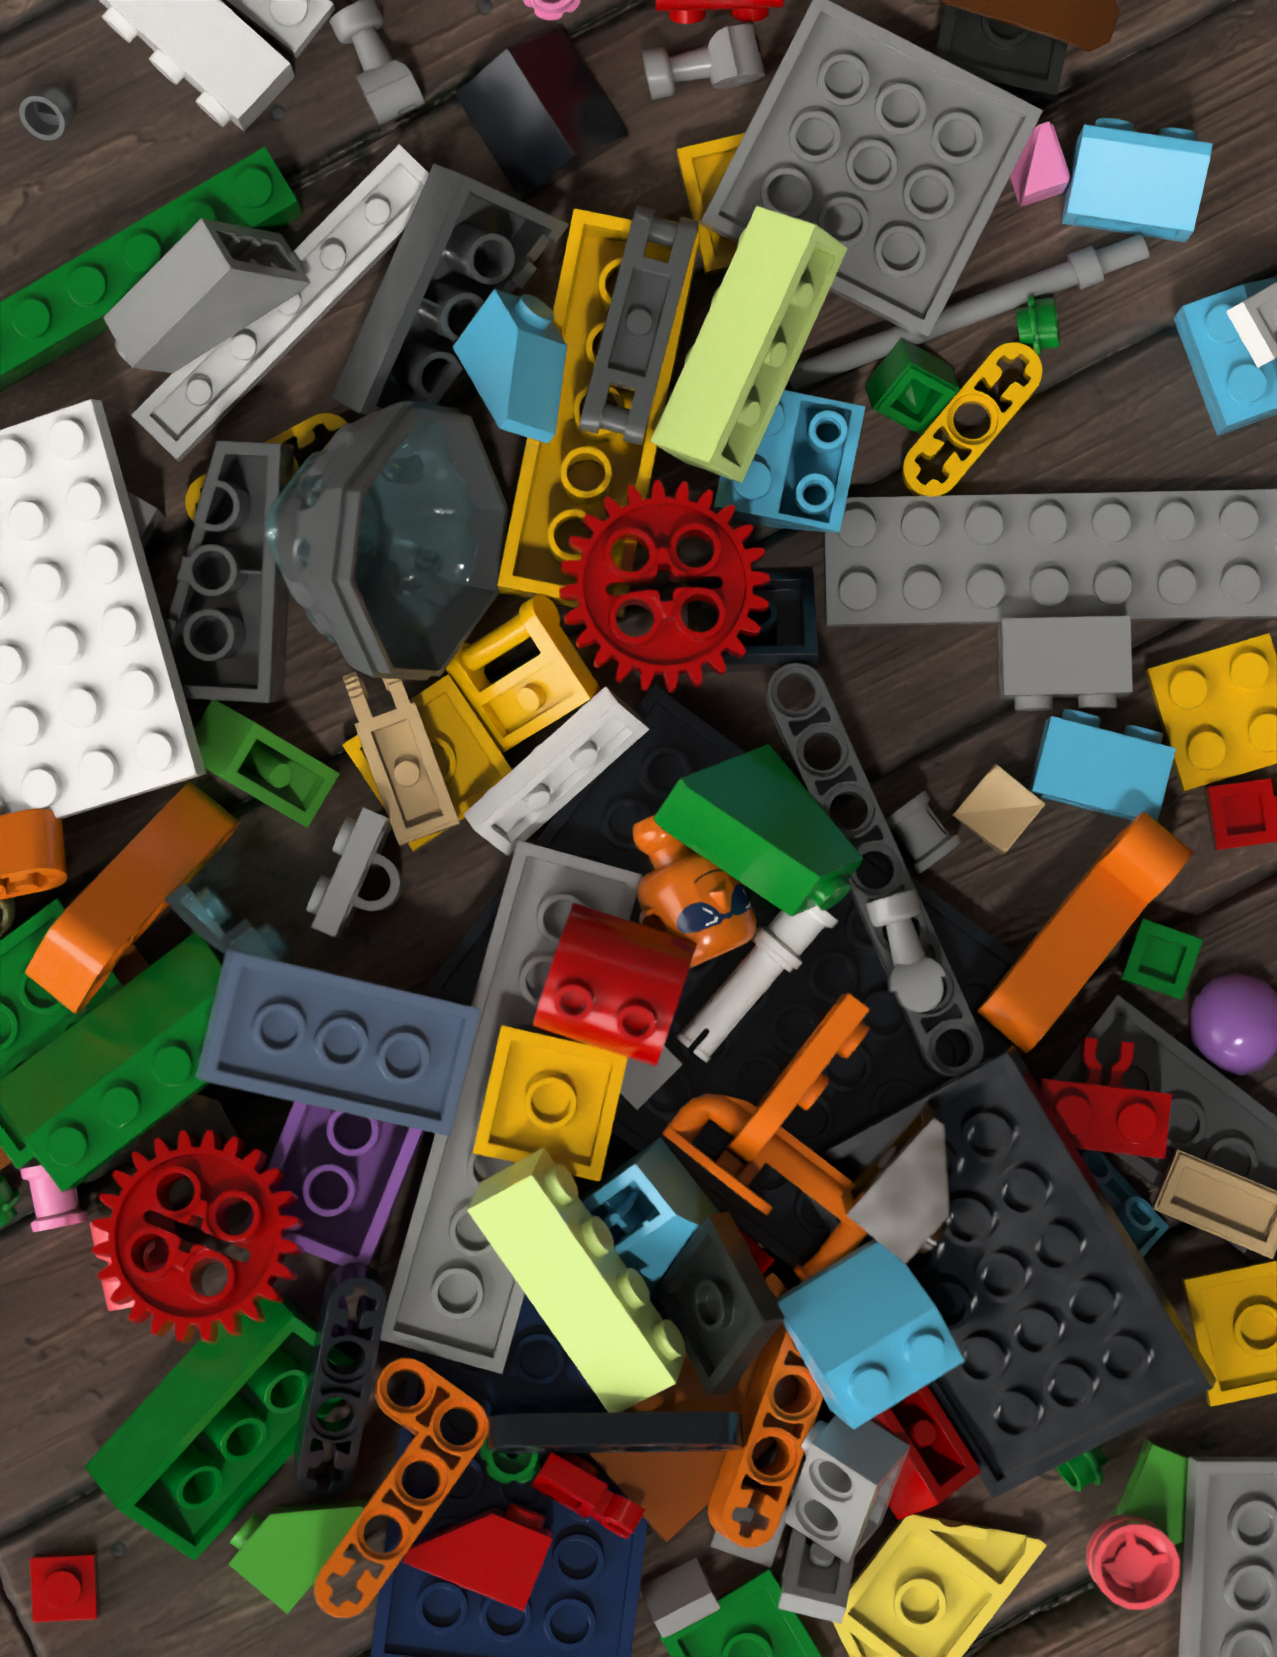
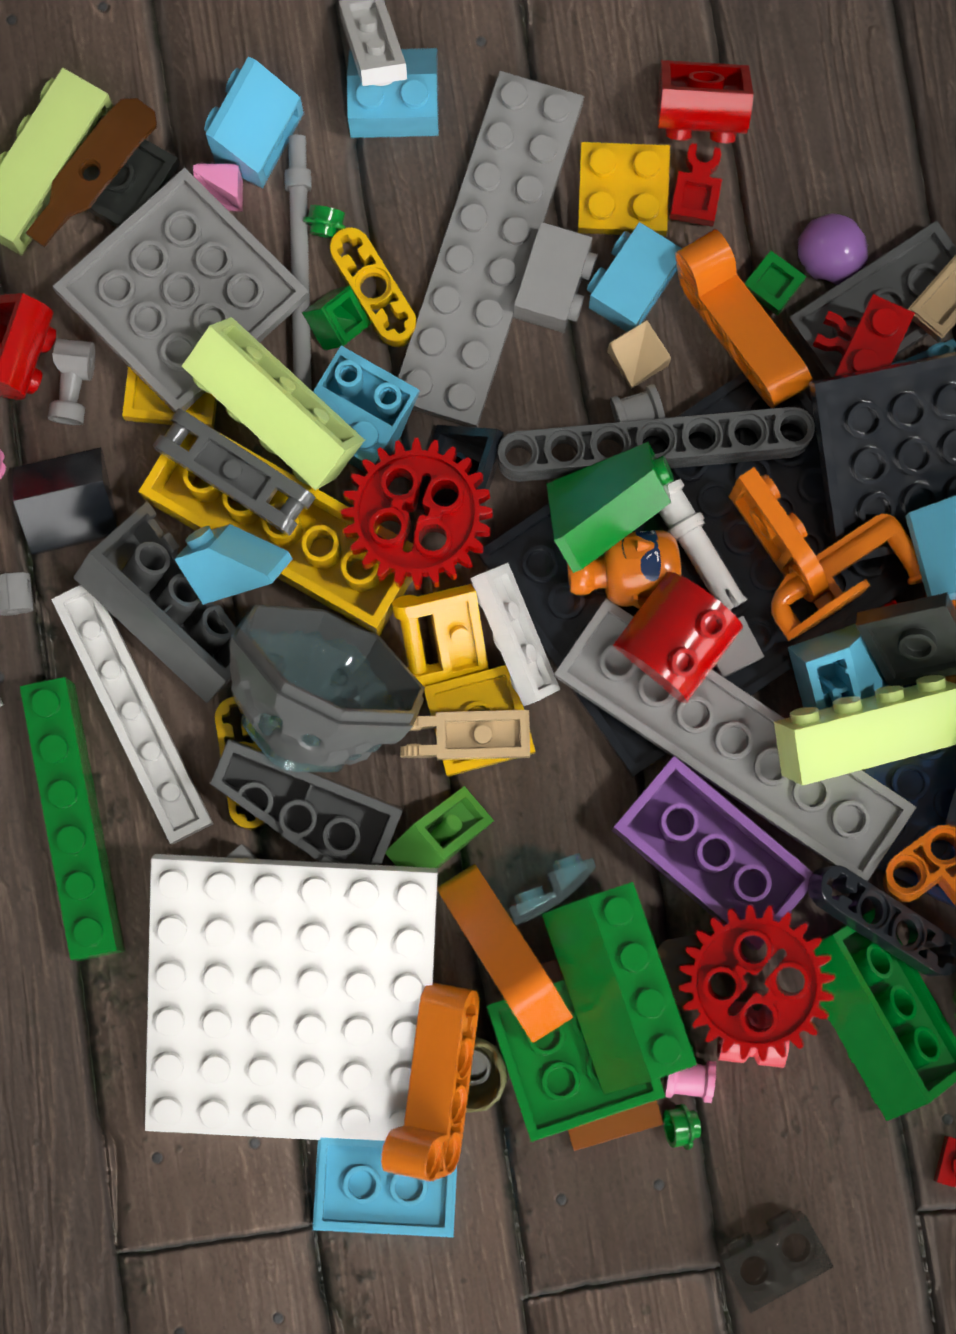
camera: 70 degrees left, 5 degrees down
(203, 294) = (106, 763): light grey slope -> none
(338, 898) = (523, 784): light grey plate -> none
(338, 1043) = (656, 837): sand blue plate -> none
(550, 1098) = (739, 709): yellow plate -> none
(905, 1188) = (881, 483): slope -> none
(914, 976) = (740, 435): light grey leg -> none

